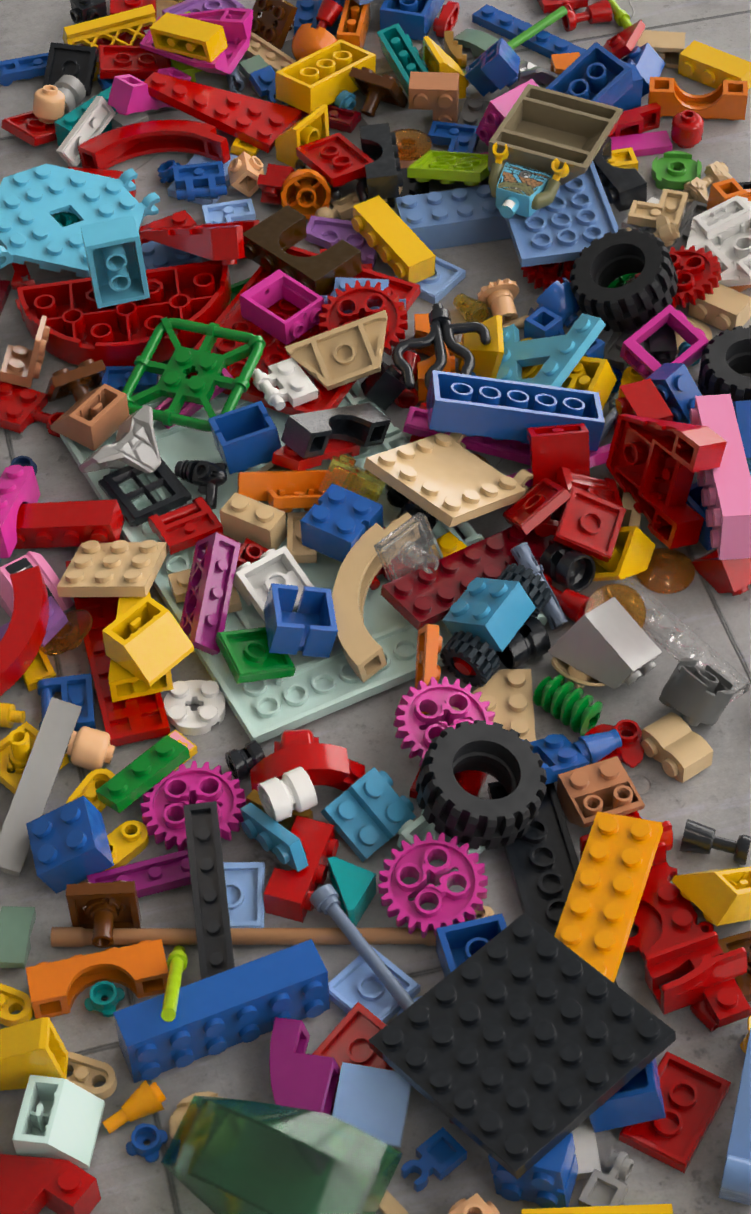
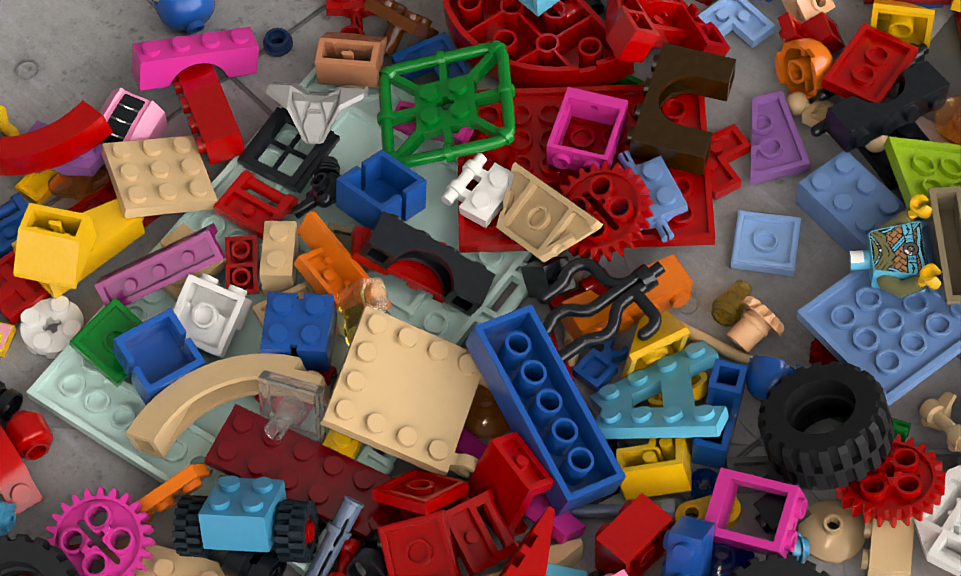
camera: 65 degrees right, 10 degrees up
(393, 240) = (777, 181): yellow brick -> none

